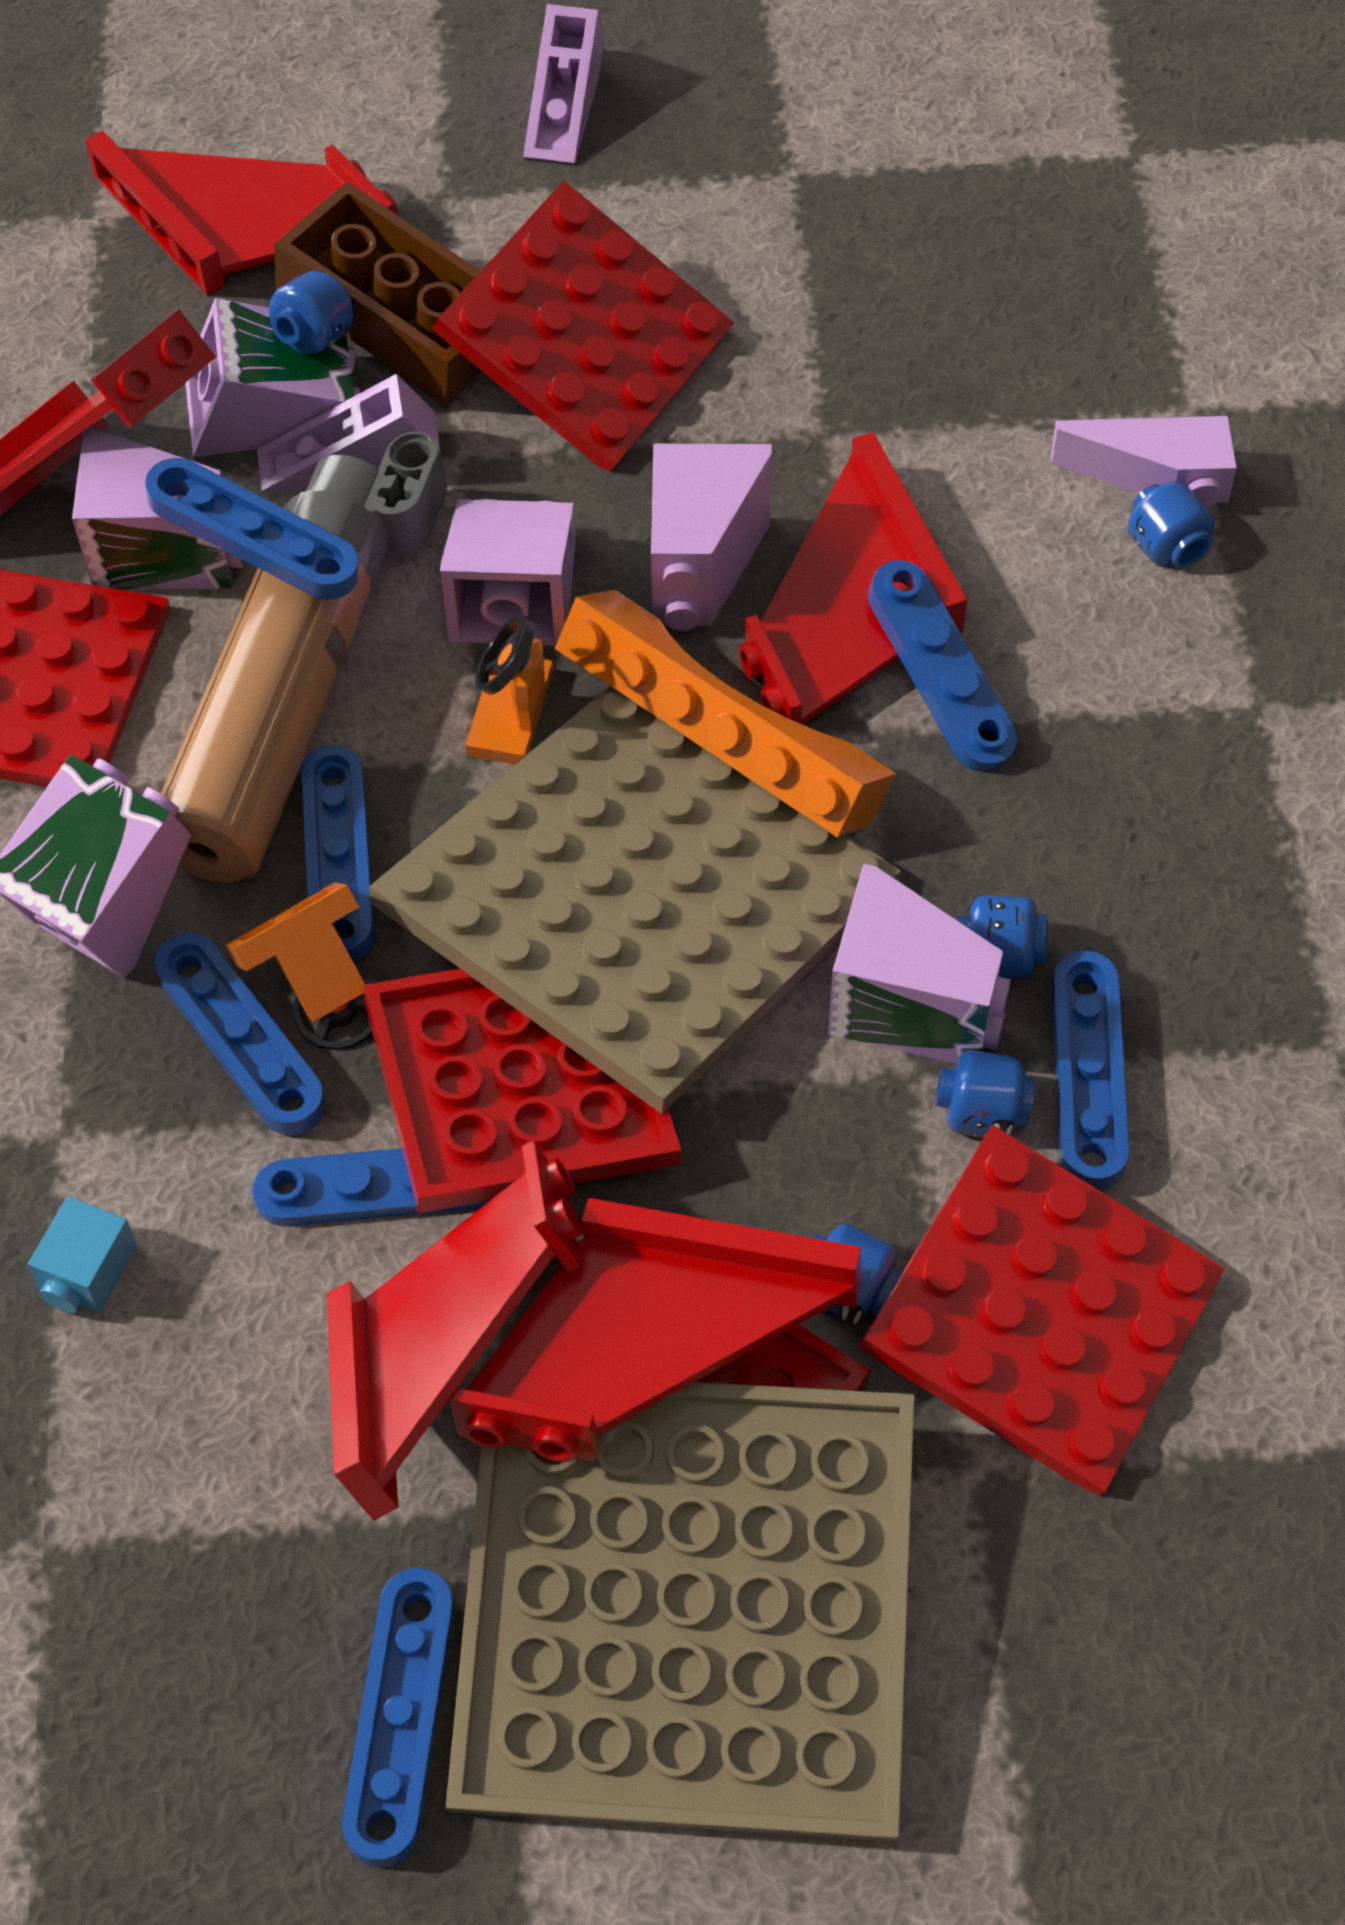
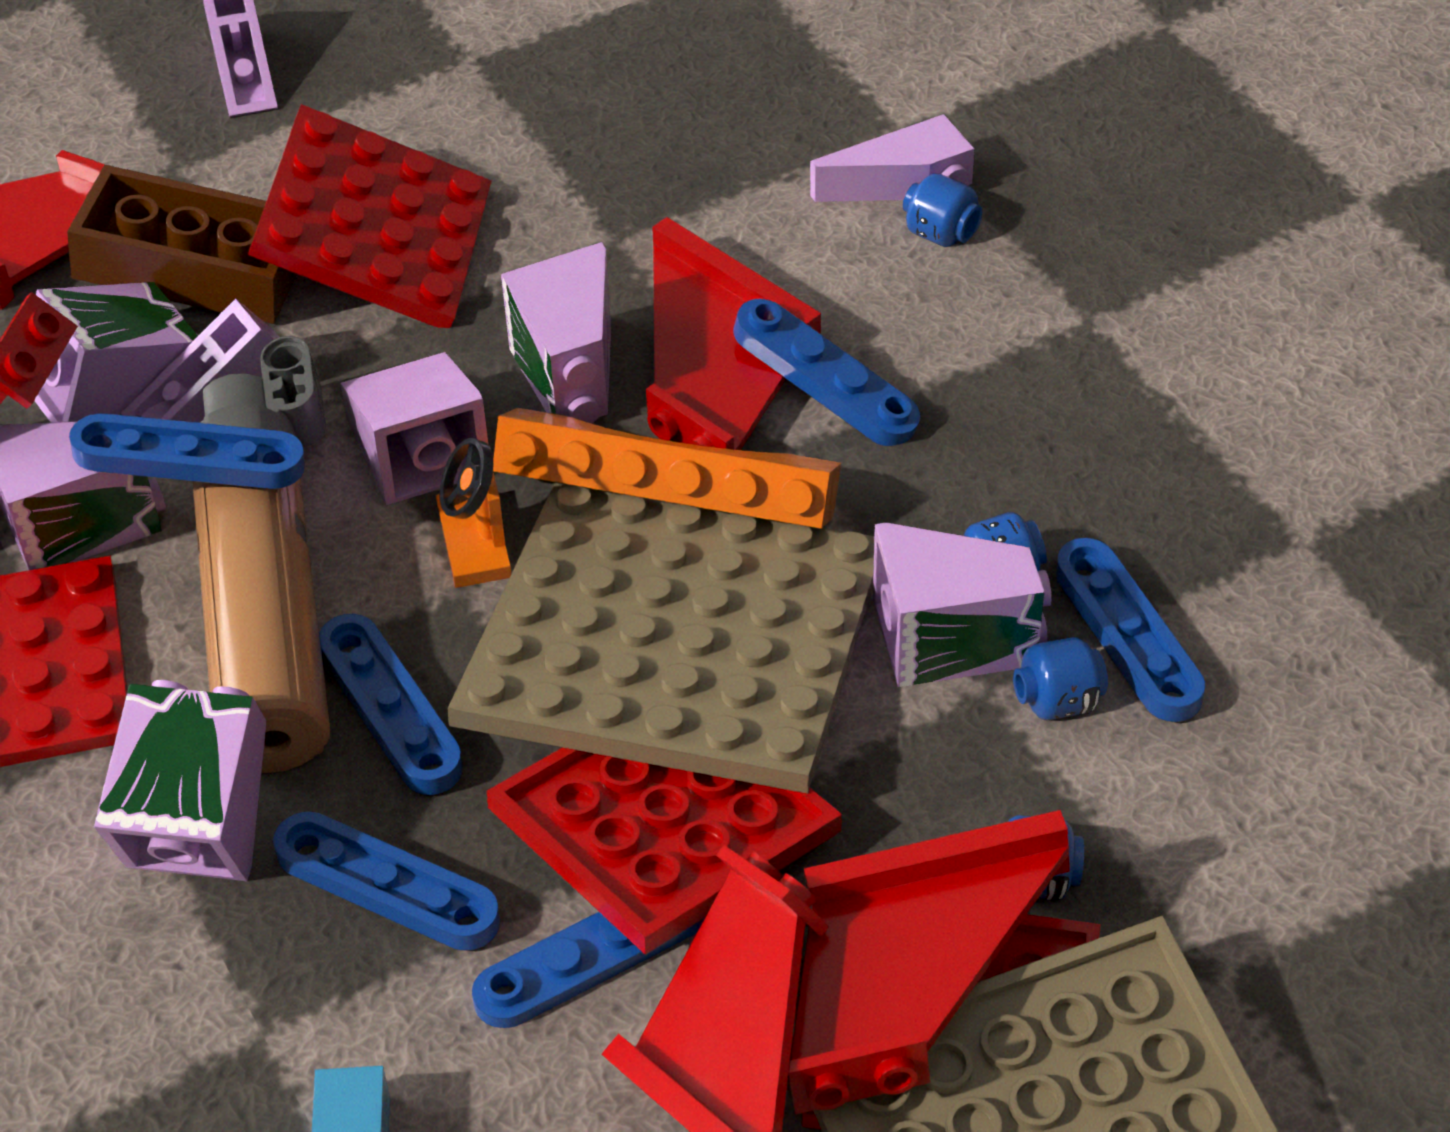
camera: 25 degrees left, 10 degrees down
(312, 309) = (133, 272): blue head -> none
(312, 962) = (428, 788): orange piece -> none
(1043, 1310) = (1209, 822): red plate -> none

